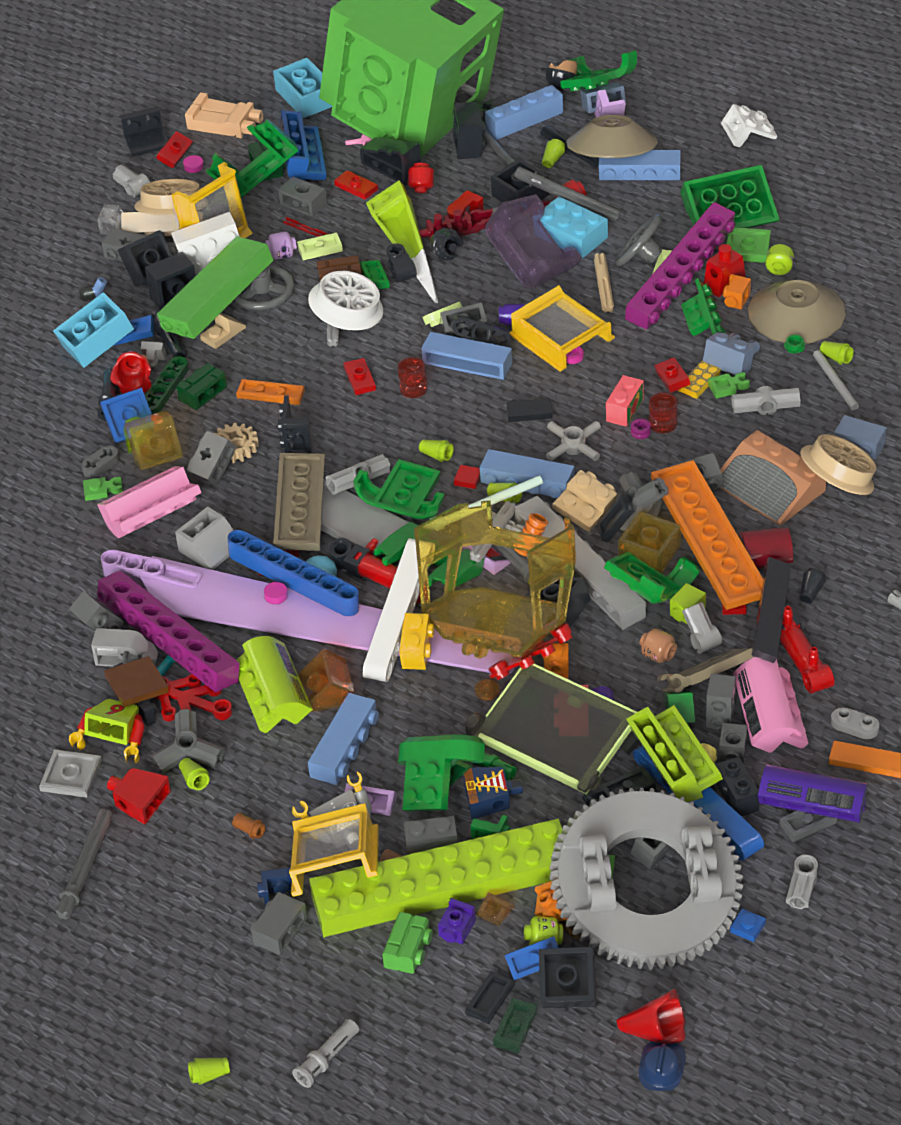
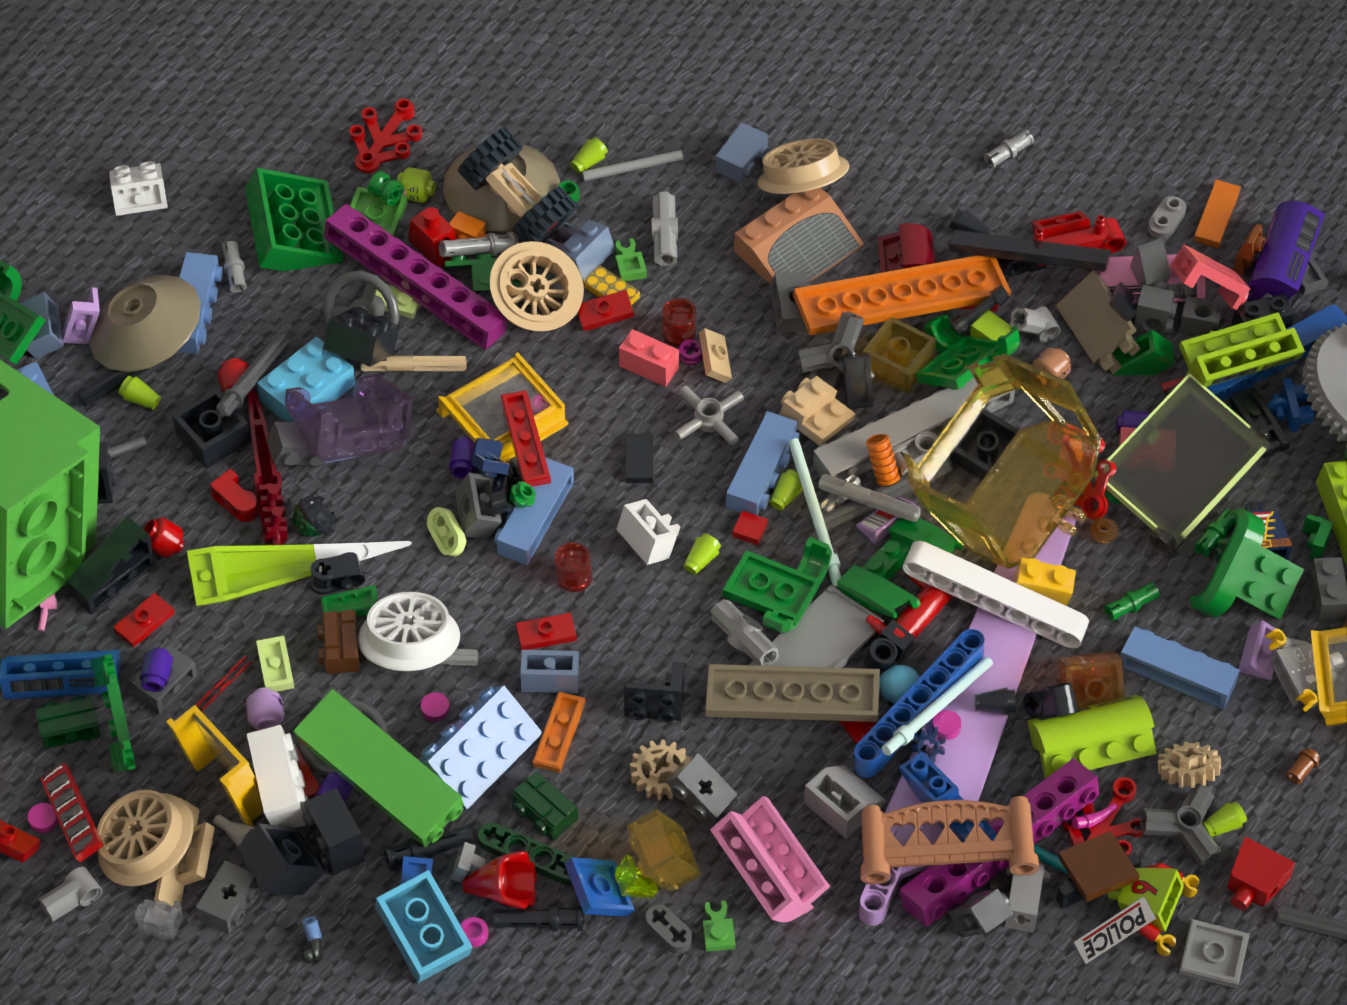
camera: 90 degrees left, 10 degrees up
(84, 700) = (1114, 930): none -> white sticker
(99, 365) = (475, 930): none -> dark pink tile
(143, 614) = (1011, 844): none -> nougat piece
(182, 170) = (72, 812): none -> tile
(190, 686) = (1090, 820): none -> dark pink helmet
(198, 589) = (933, 785): none -> blue slope
(242, 744) = (1189, 764): none -> tan gear
(247, 345) = (481, 744): none -> bracket
(250, 553) = (905, 733): none -> light aqua bar
(250, 577) = (933, 738): none -> dark blue gear
(289, 328) = (435, 707): none -> dark pink tile
(297, 179) = (156, 669): none -> dark purple brick
(297, 621) = (996, 701): none -> black cone
(297, 652) = (1051, 701): none -> black piece
(314, 373) = (549, 671): none -> sand blue brick
(413, 709) = (1132, 601): none -> green pin
(449, 413) = (647, 531): none -> white brick
(462, 338) = (522, 495): none -> green plate
(498, 314) = (487, 457): none -> dark blue bracket
(523, 333) = (525, 438): none -> red tile
(606, 237) = (361, 336): none -> black brick
(636, 440) = (715, 355): none -> tan plate
(676, 326) = (509, 267): none -> tan piece
(677, 182) = (234, 267): none -> light grey pin
(712, 590) = (961, 323): none -> black bar
(713, 664) = (1124, 302): none -> black tile
(723, 302) = (489, 244): none -> light grey pin
(755, 679) = (1151, 264): none -> dark grey slope
(758, 725) = (1191, 264): none -> coral panel
(764, 237) = (384, 187): none -> green wheel
(776, 278) = (491, 165): none -> black plate
(807, 237) = (384, 138): none -> red plant
(811, 761) = (1253, 243): none -> dark orange slope
(827, 648) = (1062, 224): none -> red plate

